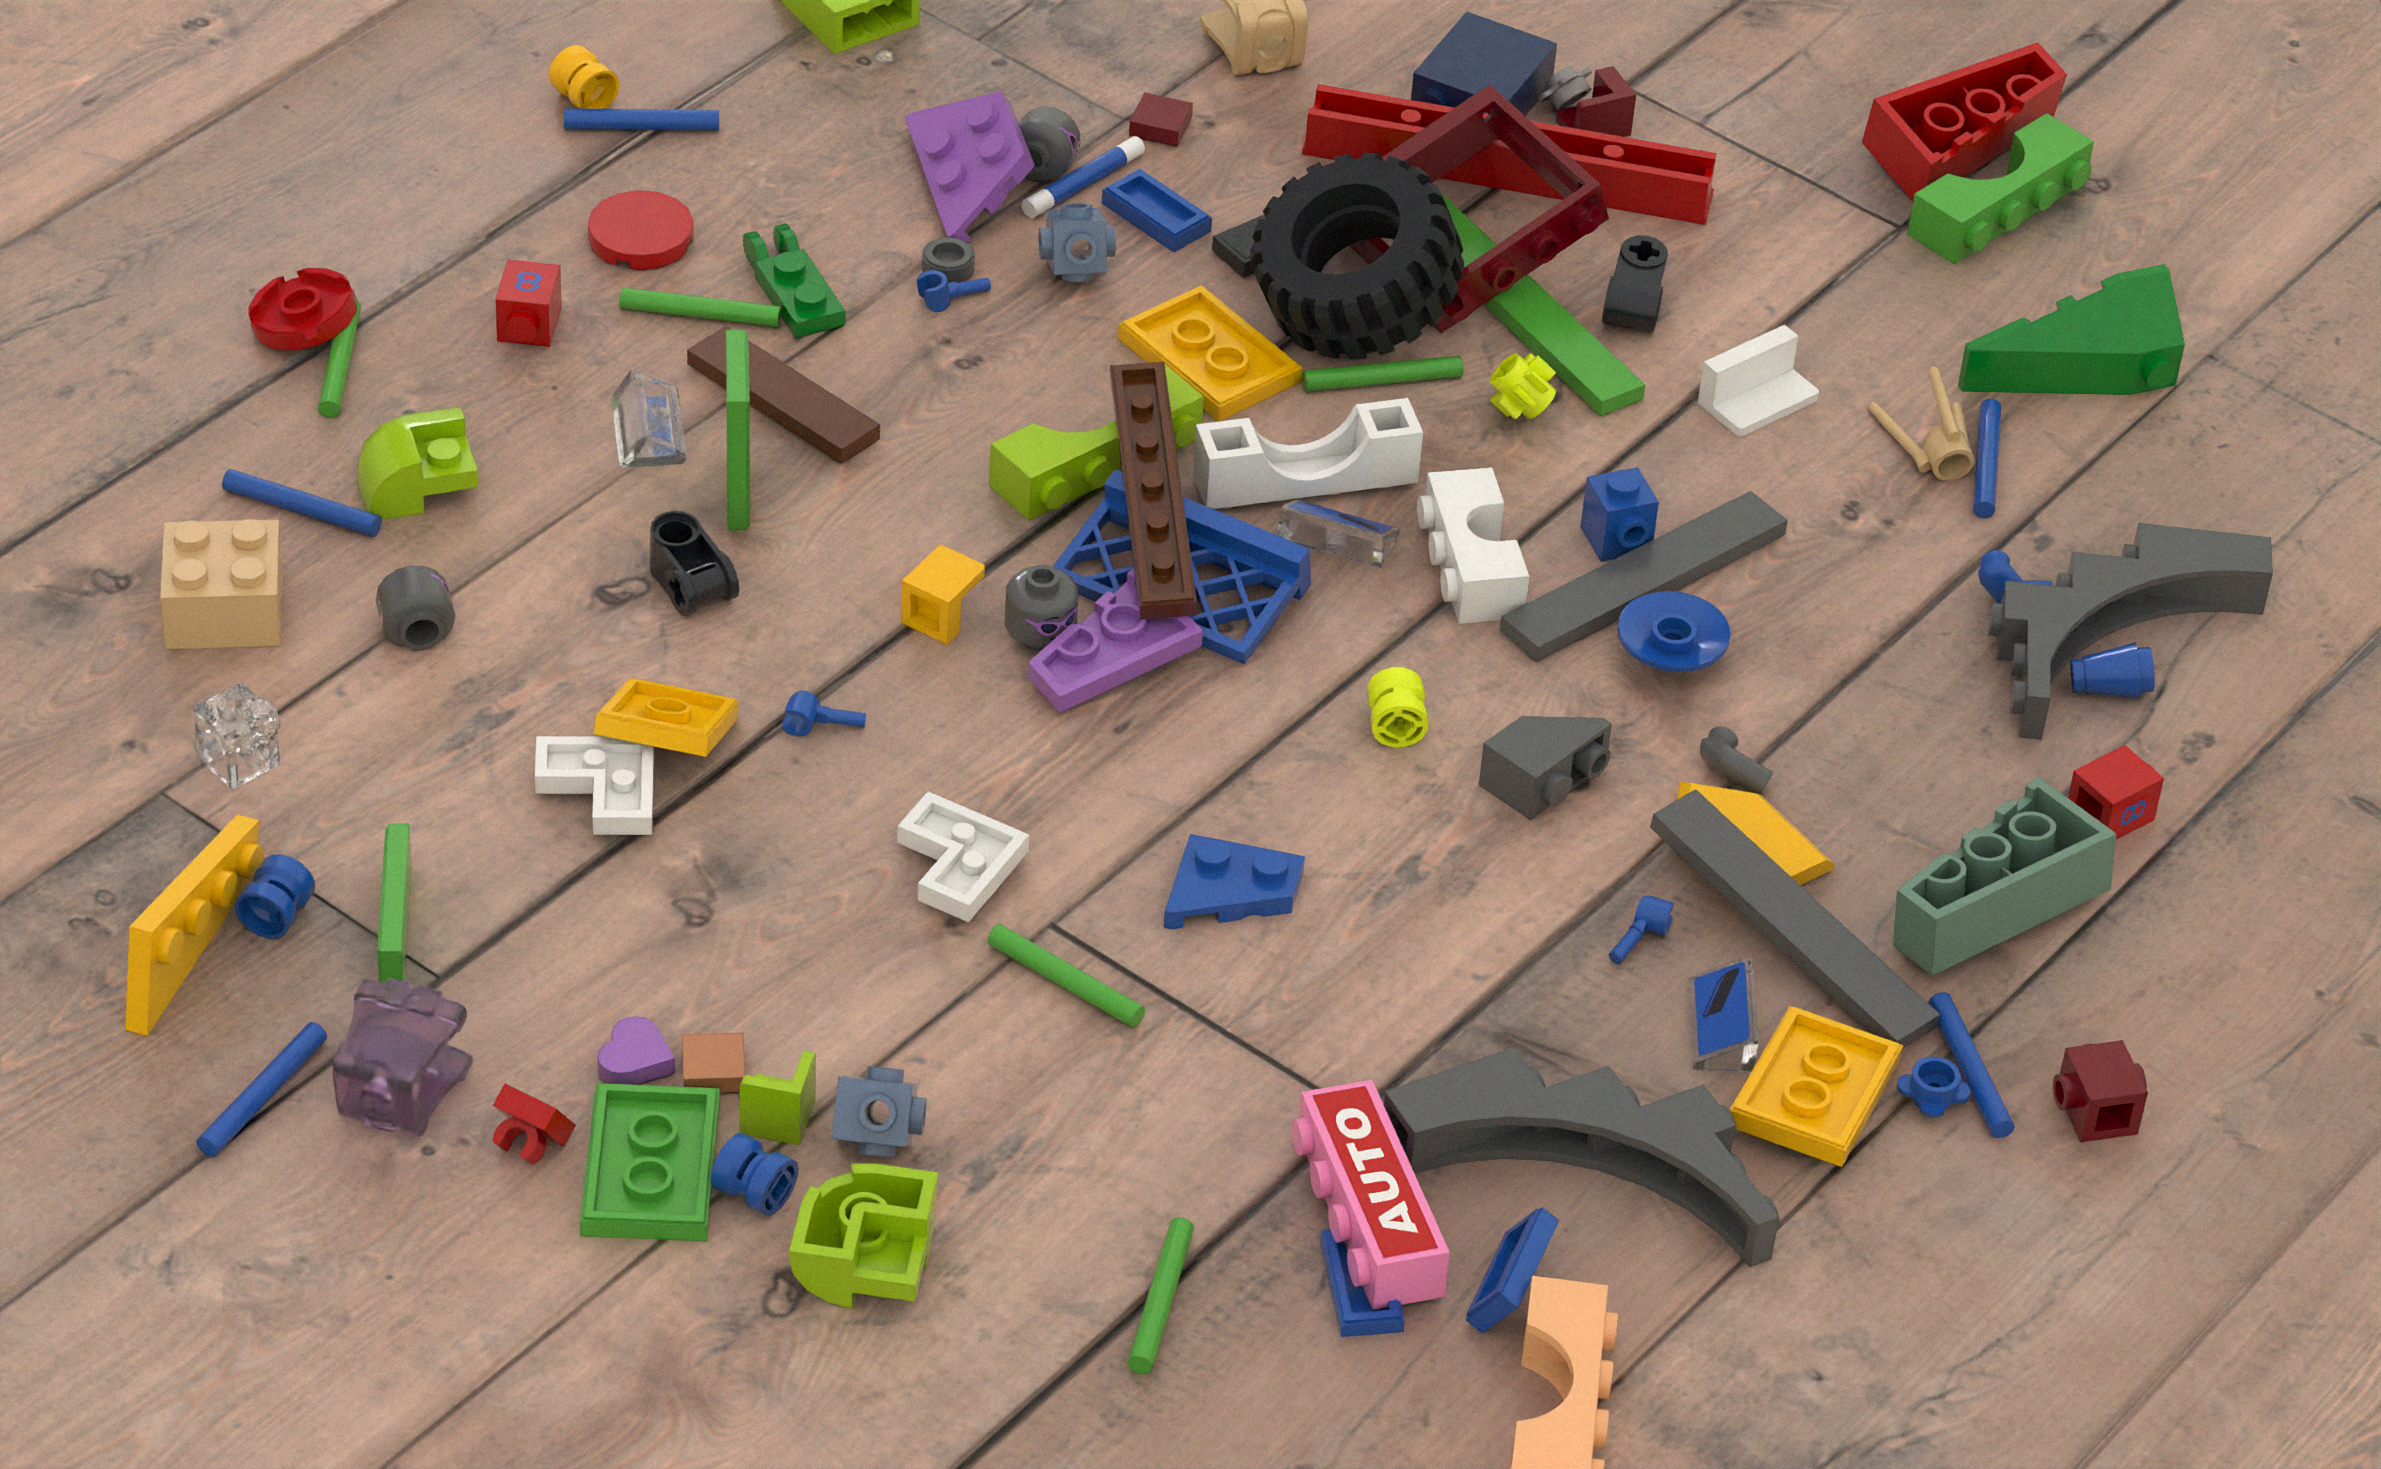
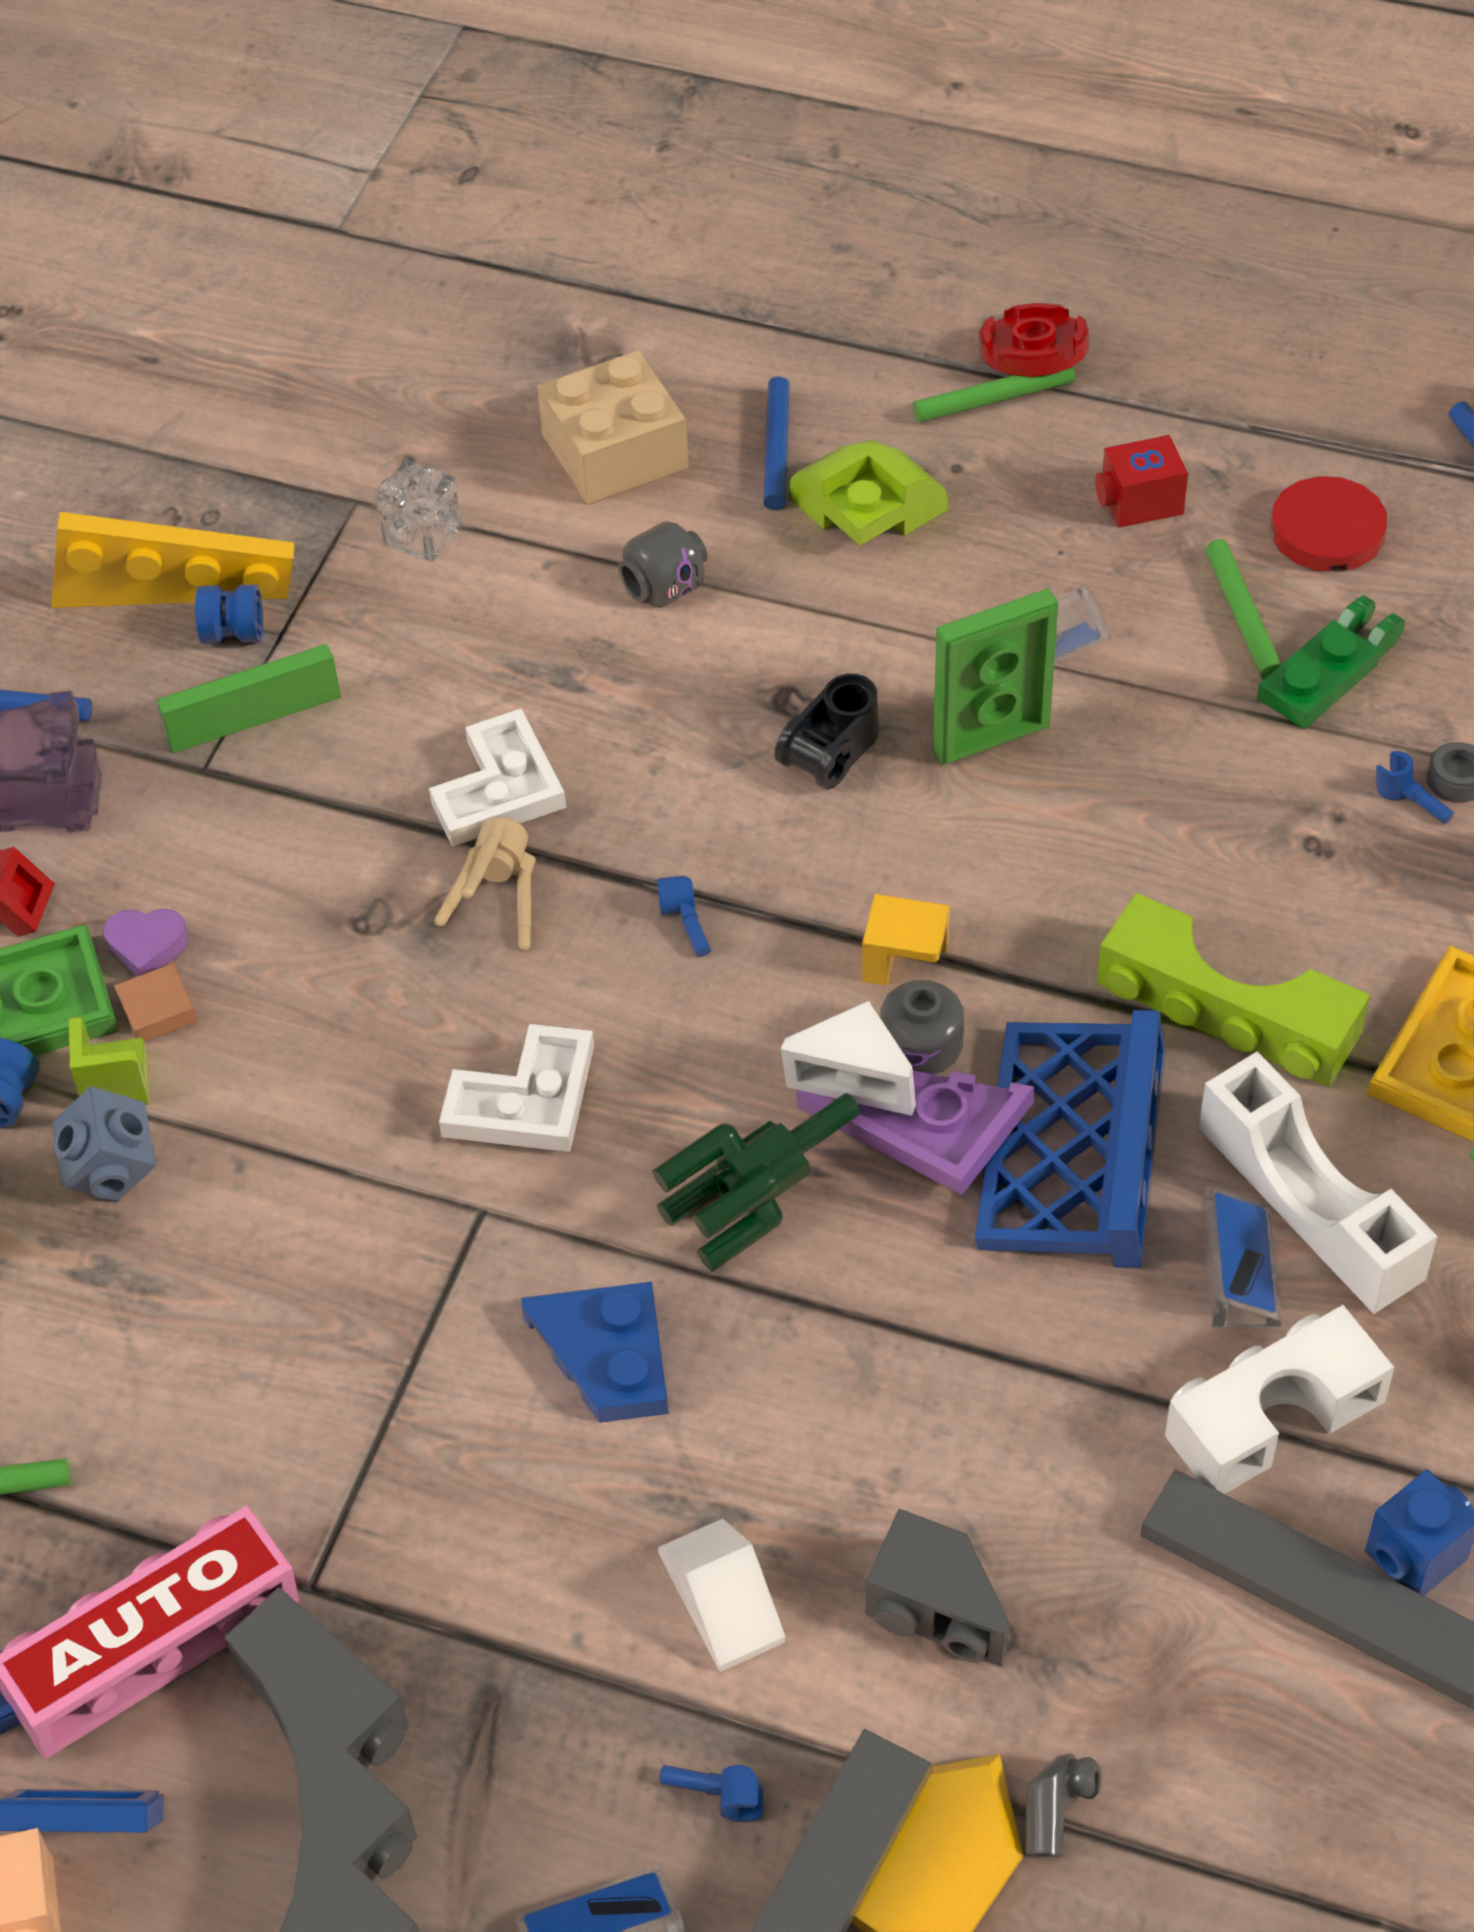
camera: 75 degrees right, 10 degrees up
(667, 717) = (599, 793): yellow tile -> none
(692, 800) = (496, 857): none -> tan plant
(791, 399) = (1151, 718): reddish brown tile -> none
(1066, 975) = (398, 1248): bright green bar -> none
(1074, 635) = (853, 1057): none -> white slope
(1135, 741) = (747, 1175): none -> dark green plant
(1153, 491) = (1135, 1052): reddish brown tile -> none
(1397, 707) = (945, 1413): neon yellow wheel -> none
(1479, 875) = (724, 1593): none -> white slope
(1674, 631) = (1252, 1633): blue dish -> none

